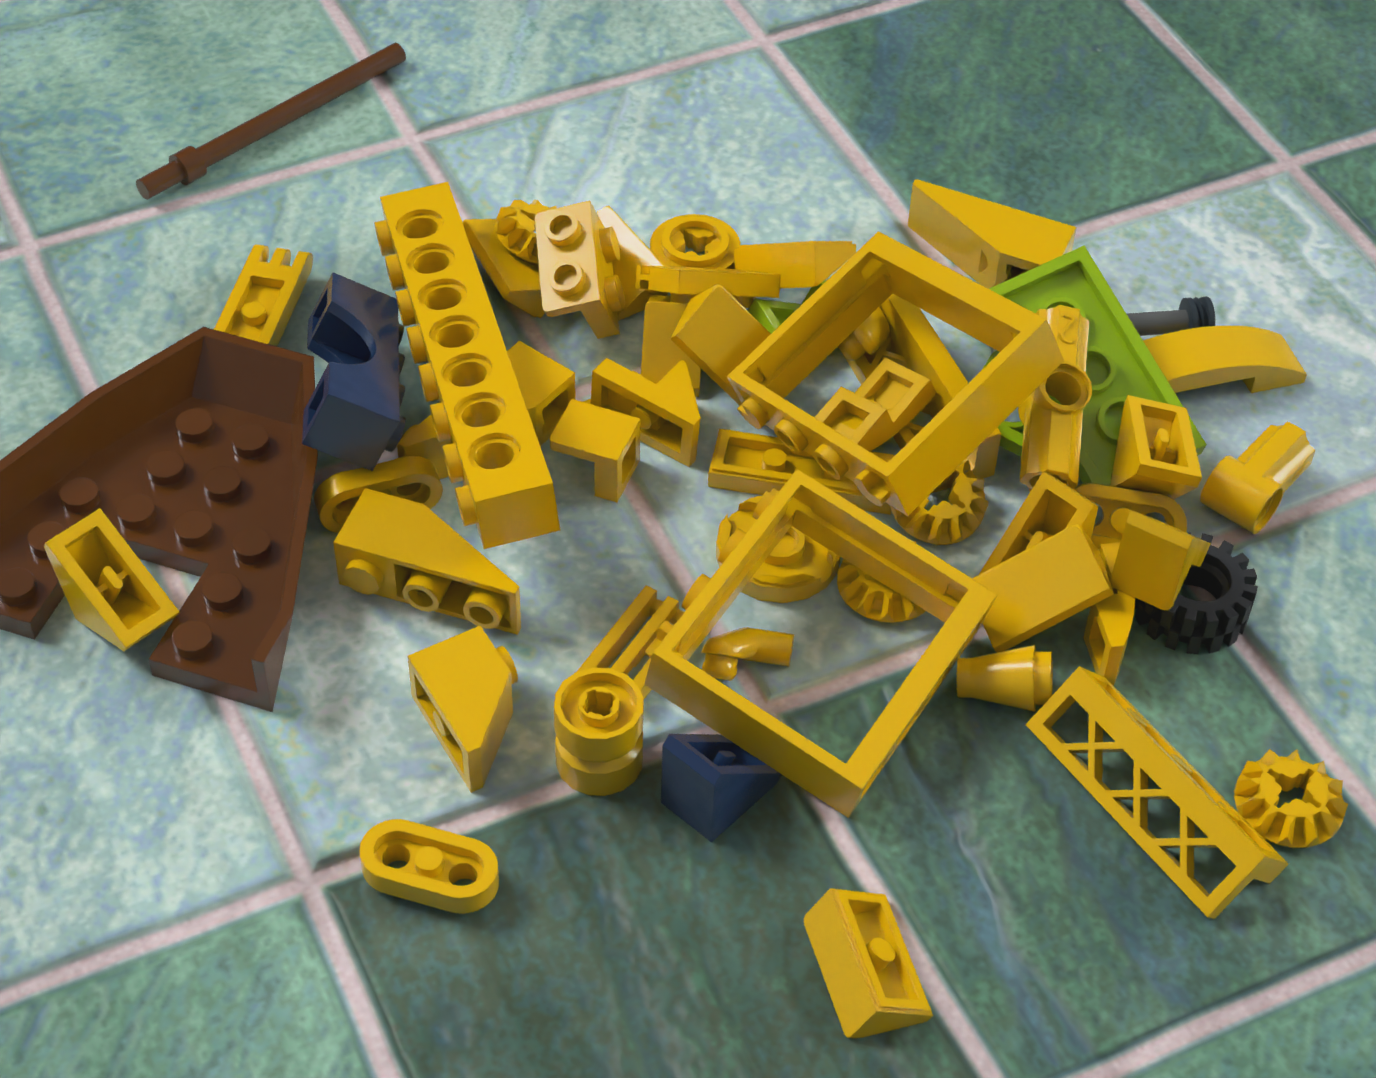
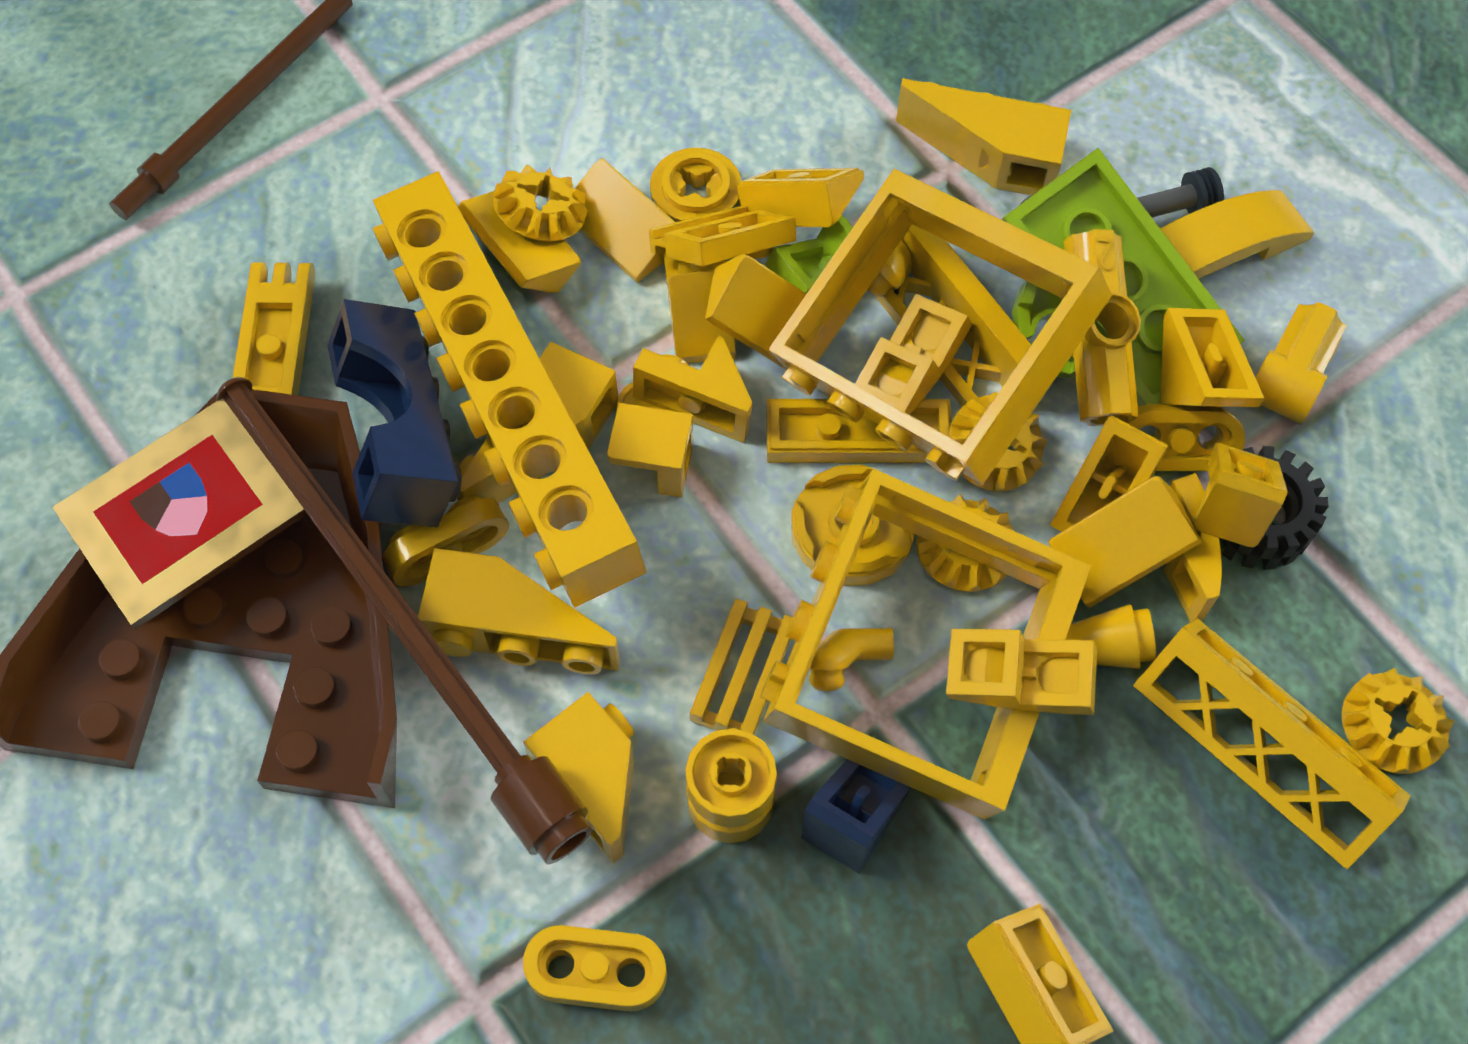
camera: 10 degrees left, 15 degrees up
(108, 582) = (198, 707): yellow slope -> none
(194, 400) = (224, 490): none -> flag
(578, 266) = (588, 240): yellow bracket -> none
(894, 667) = (1022, 673): none -> yellow slope

